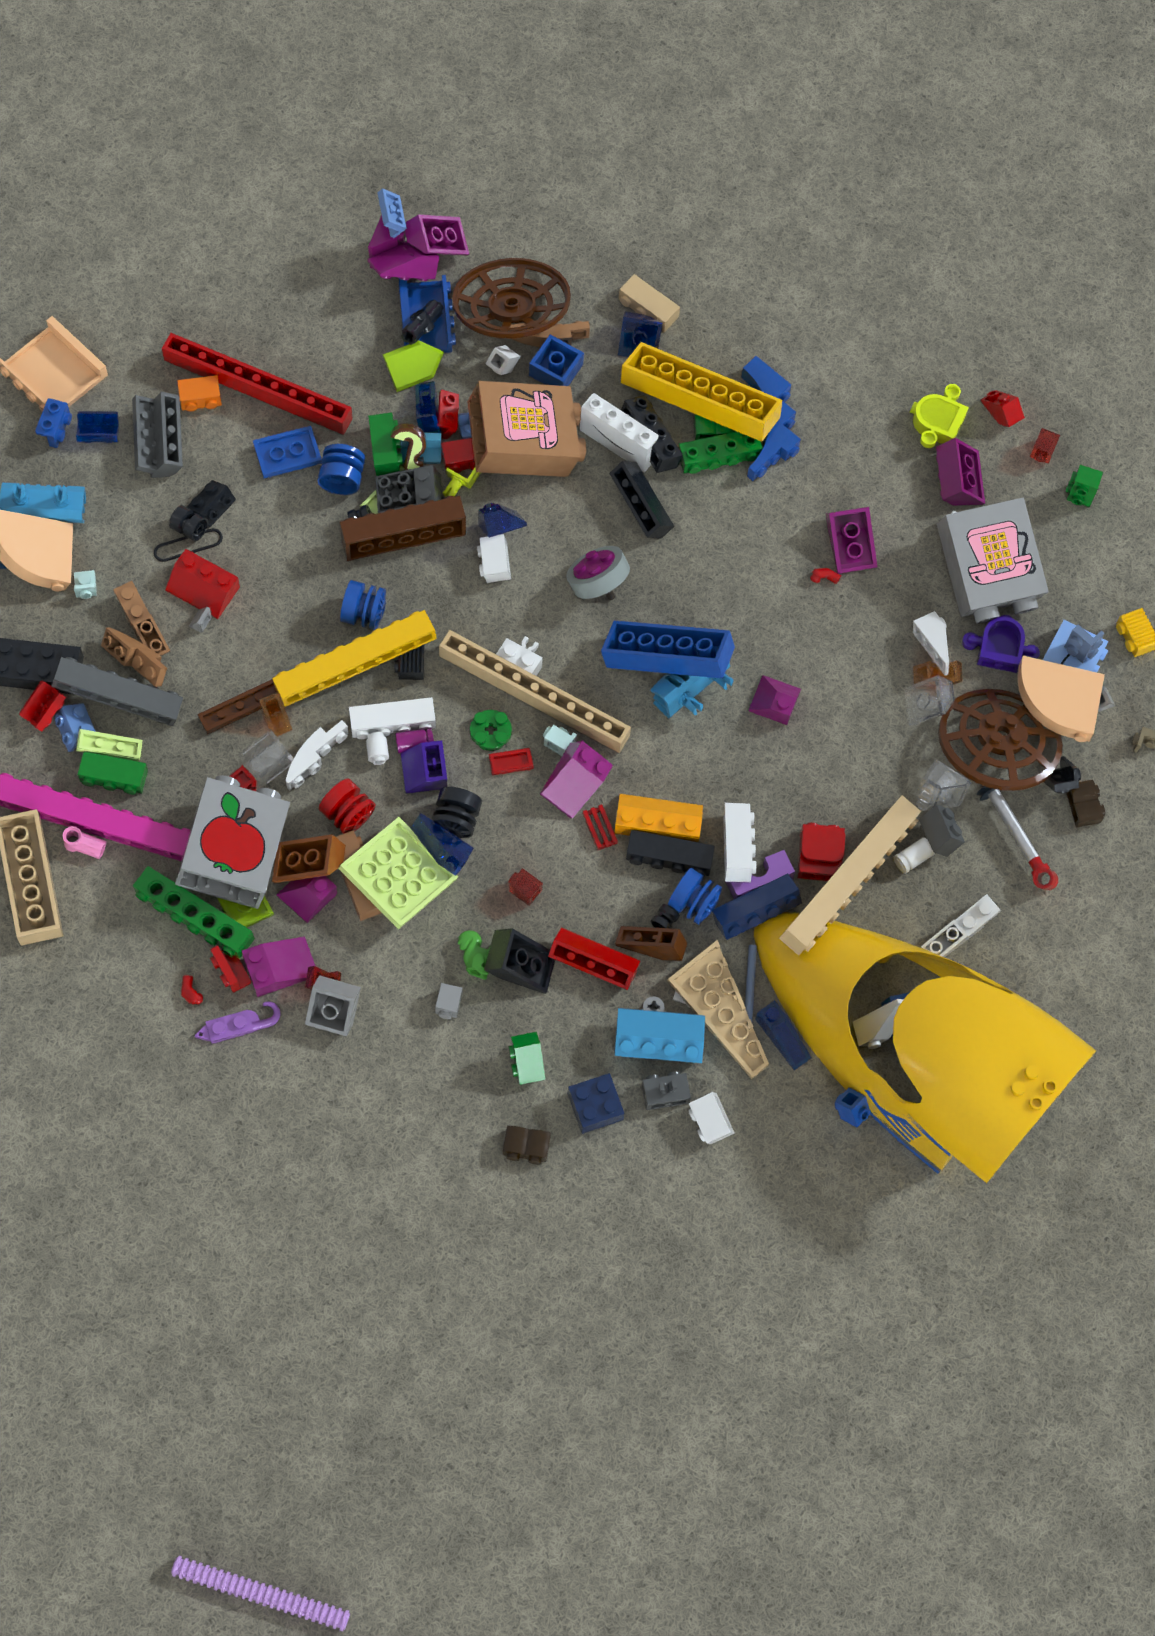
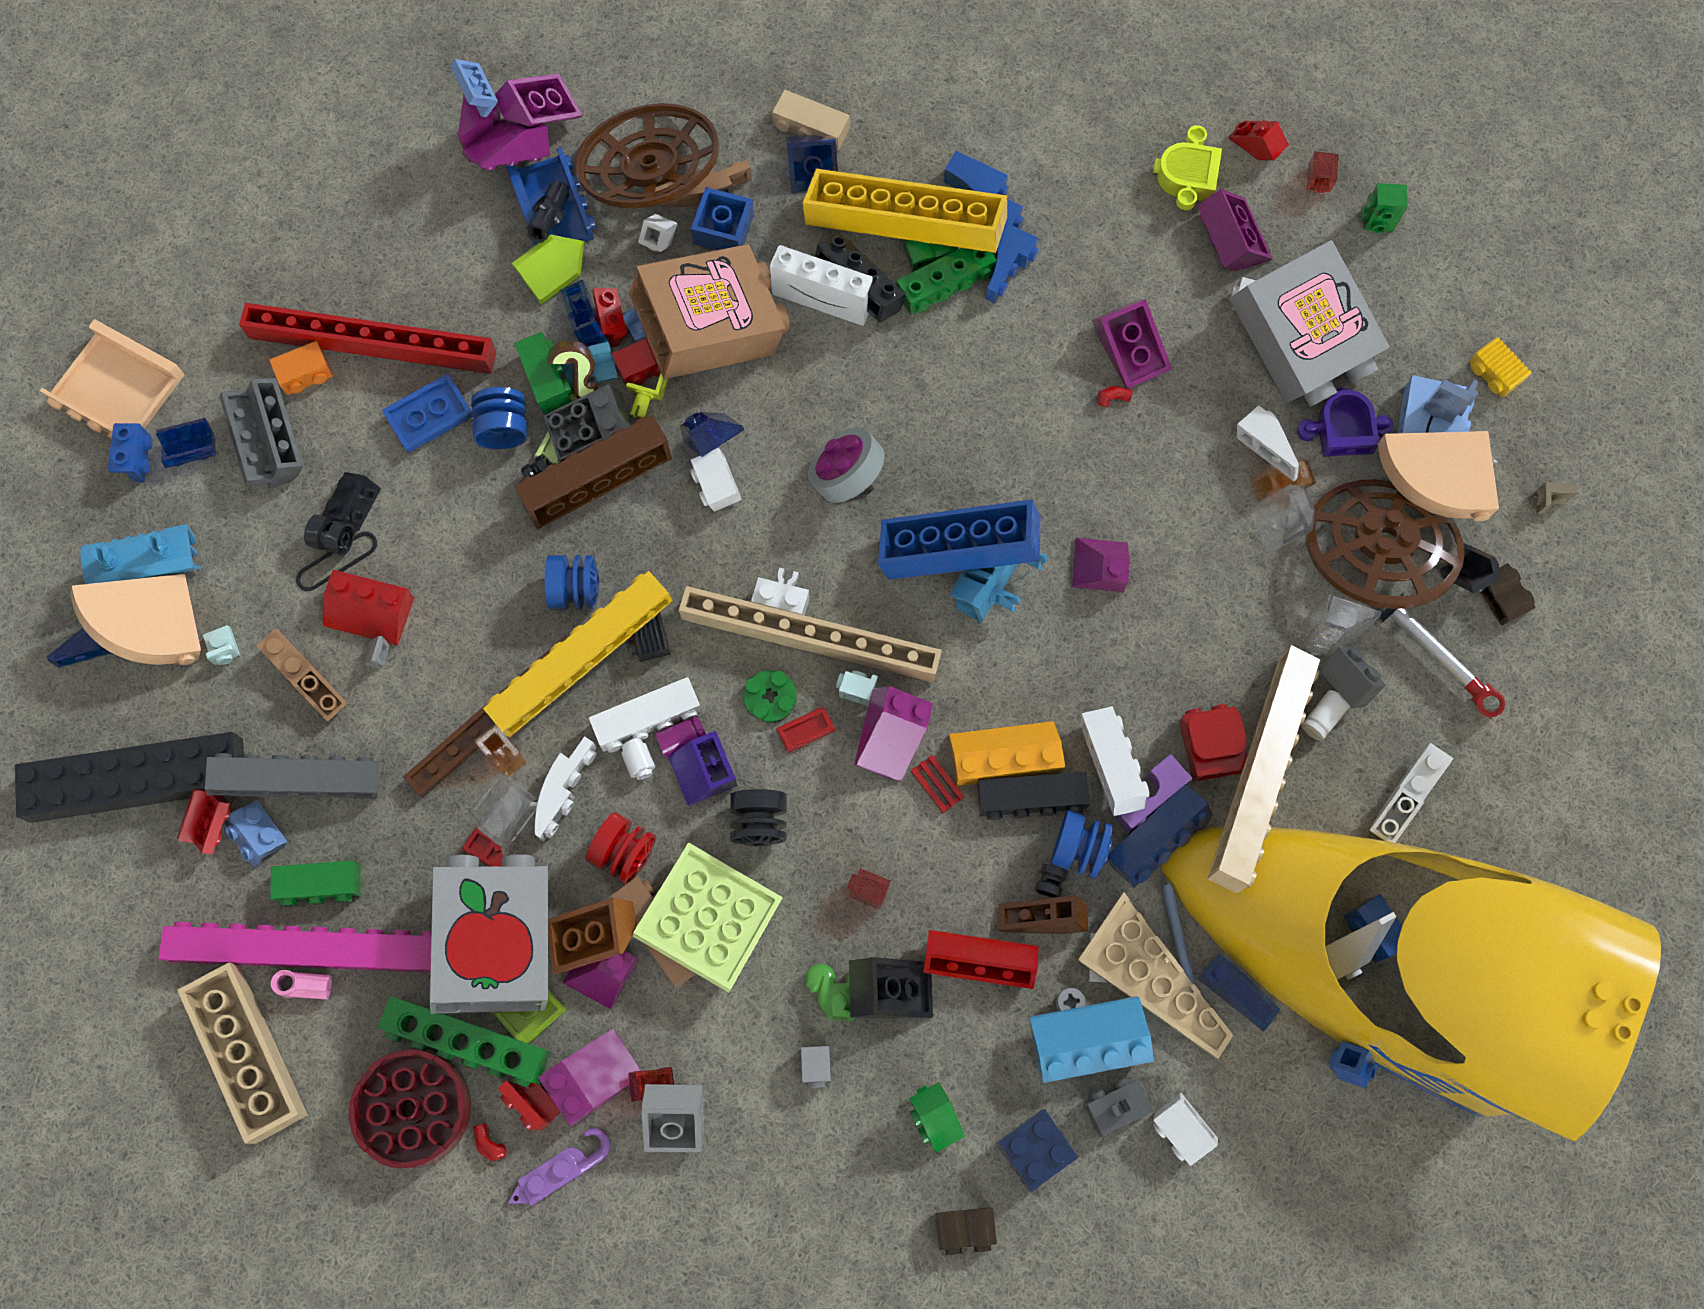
camera: 10 degrees left, 5 degrees up
(109, 745) = (301, 848): yellowish green tile -> none
(135, 654) = (305, 720): medium nougat slope -> none
(143, 970) = (379, 1109): none -> dark red brick
(442, 845) = (755, 866): clear blue slope -> none
(641, 499) = (871, 360): black brick -> none

